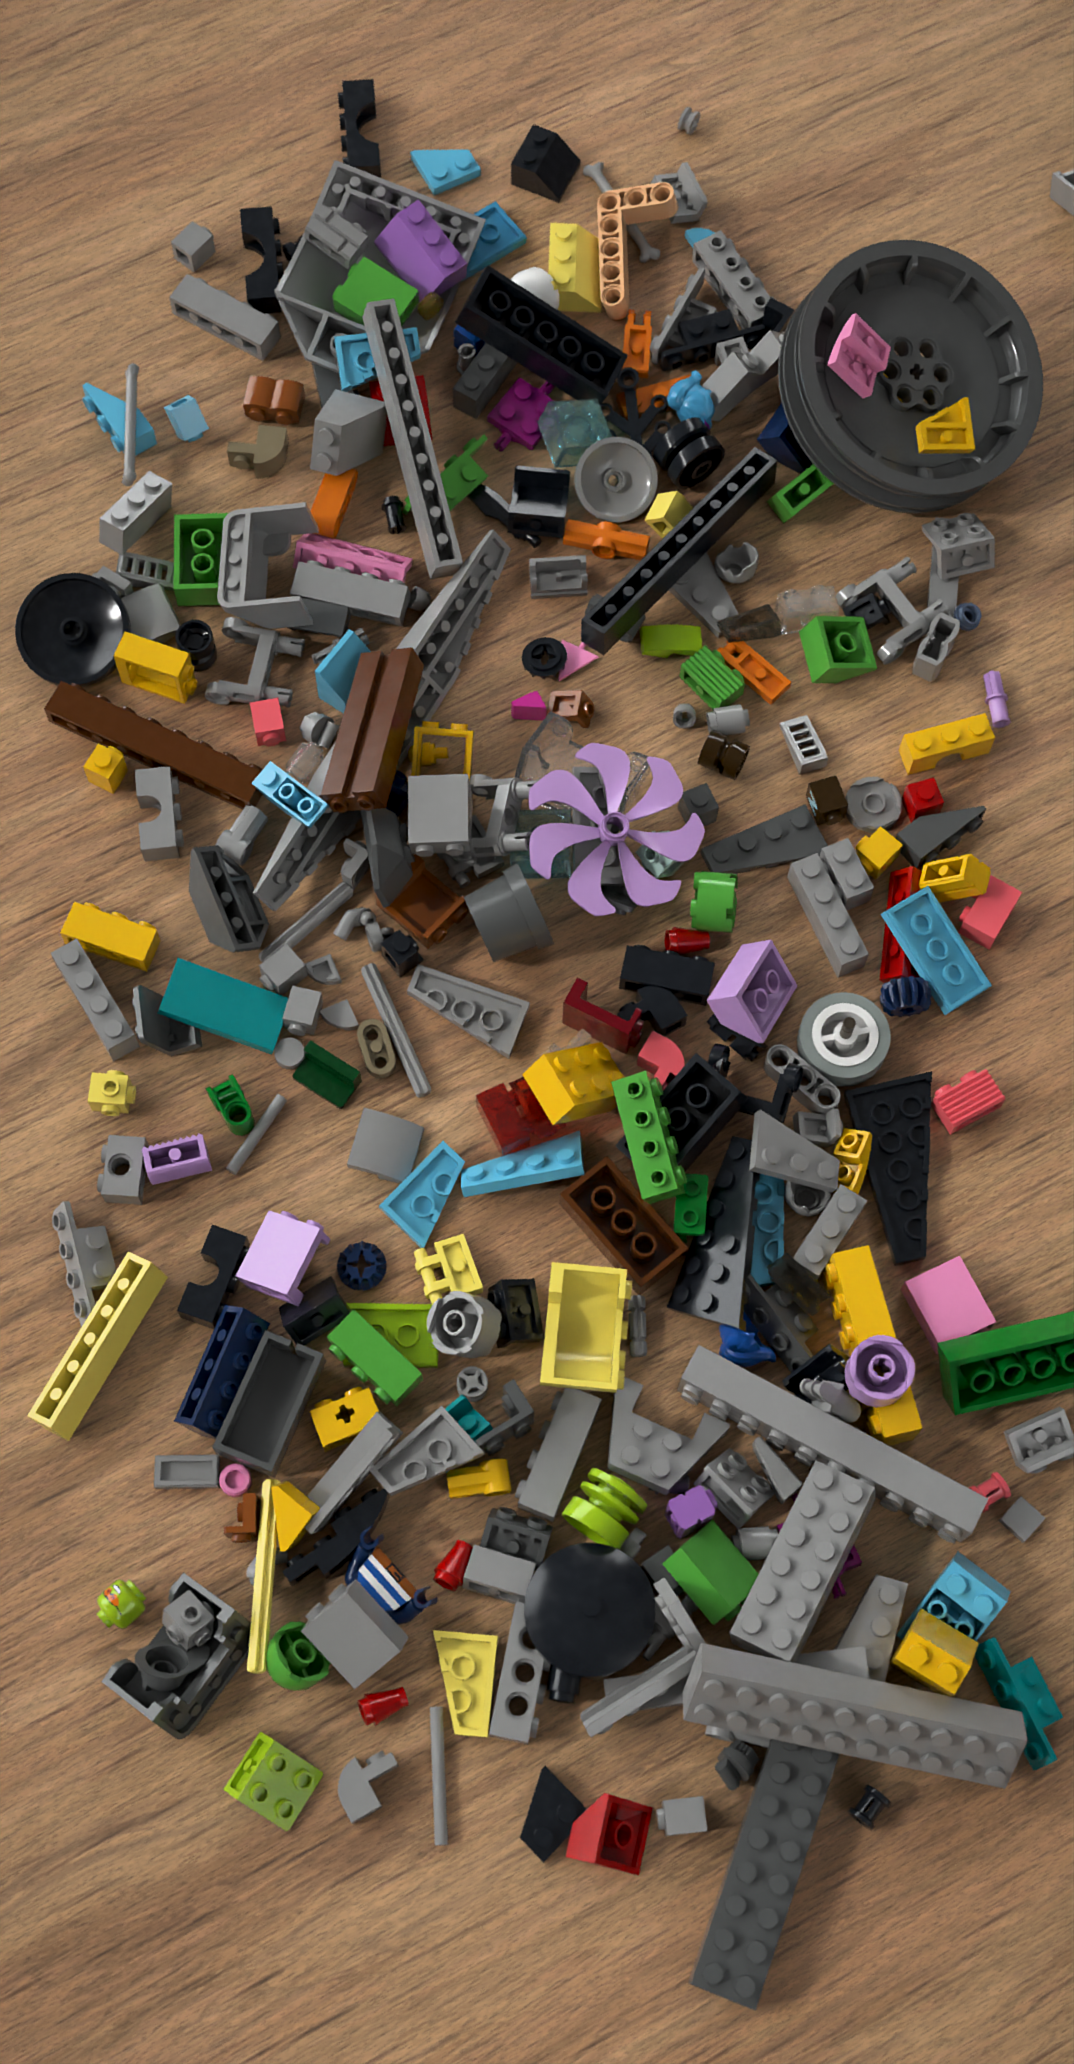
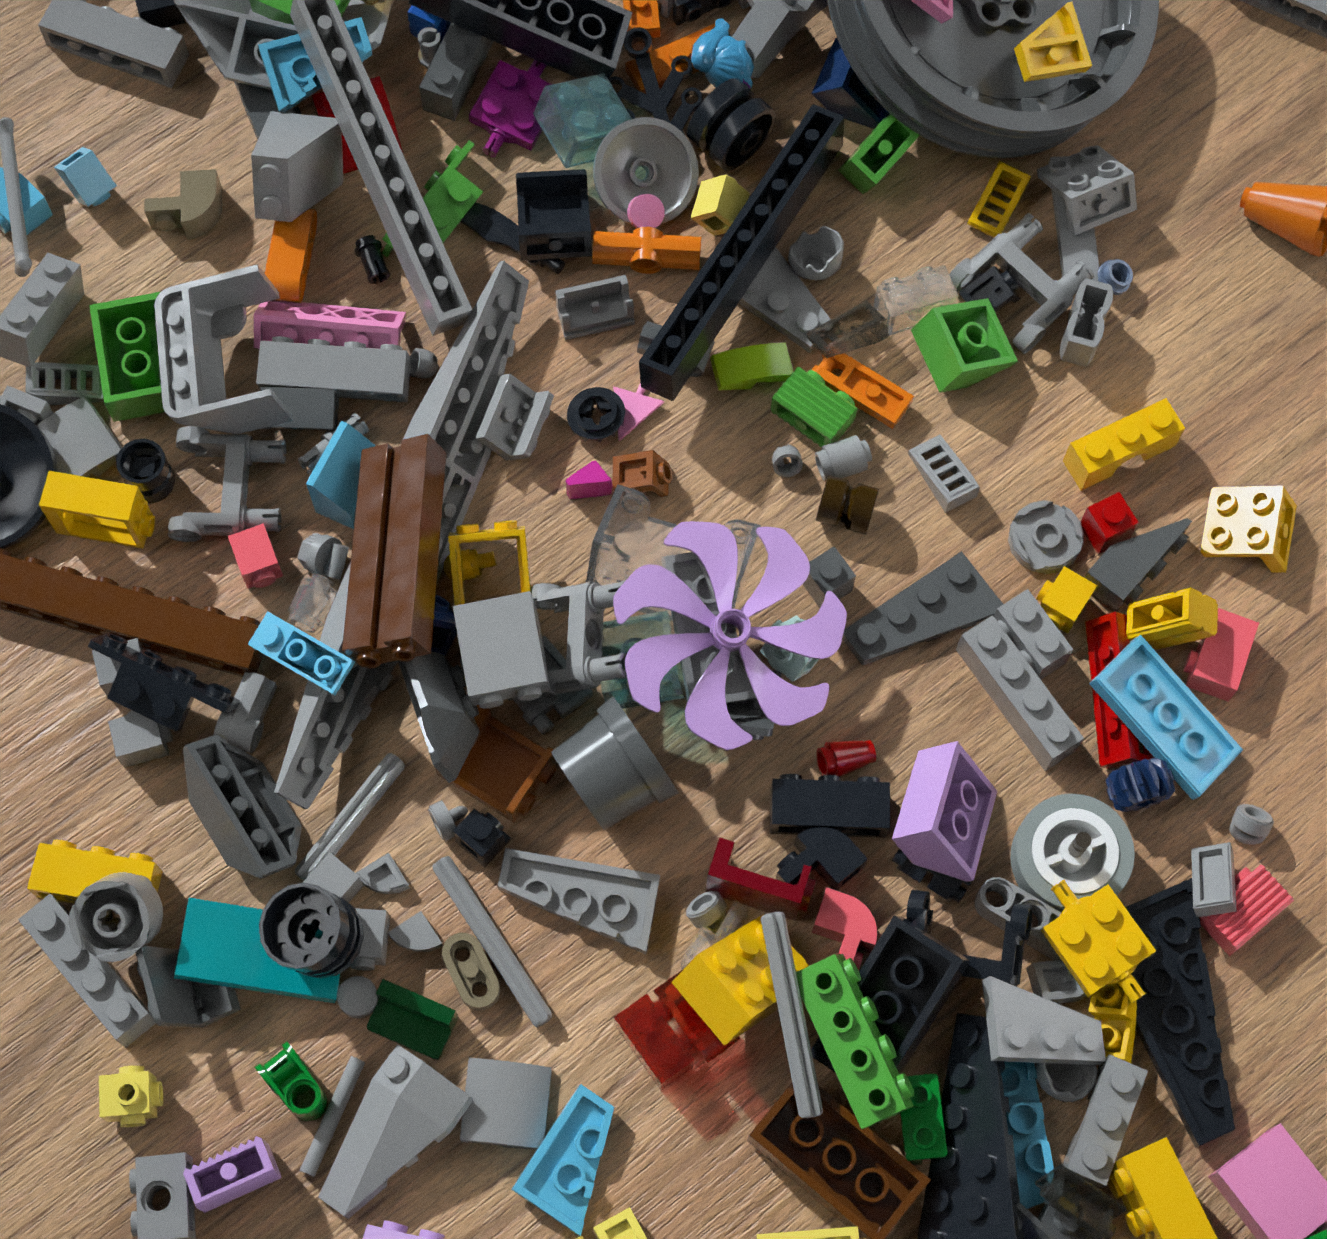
camera: 10 degrees left, 0 degrees up
(106, 768) = (53, 652): yellow brick -> none
(139, 955) = (111, 937): none -> light grey brick
(178, 804) = (156, 688): none -> black bracket
(253, 983) = (290, 928): none -> black wheel
(274, 400) = (194, 136): dark orange brick -> none
(304, 1139) = (396, 1120): none -> light grey wedge
(353, 918) = (410, 800): light grey arm -> none
(356, 866) = (402, 732): light grey bracket -> none
(481, 651) = (514, 418): none -> light grey bracket
(533, 1165) = (704, 1097): medium azure wing -> none
(560, 1033) = (707, 910): none -> light grey tile
(606, 1110) = (791, 1015): none -> light grey axle
(610, 509) = (645, 211): none -> bright pink tile
(714, 901) = (876, 700): bright green brick -> none
(827, 800) = (988, 543): dark brown brick -> none
(848, 1100) = (1098, 940): none -> yellow plate
(901, 527) = (1011, 176): none -> yellow slope
(947, 1074) = (1213, 880): none -> light grey tile
(987, 1038) = (1251, 821): none -> light grey tile
(996, 699) = (1172, 376): lavender axle -> none
(1034, 819) = (1250, 524): none -> bracket

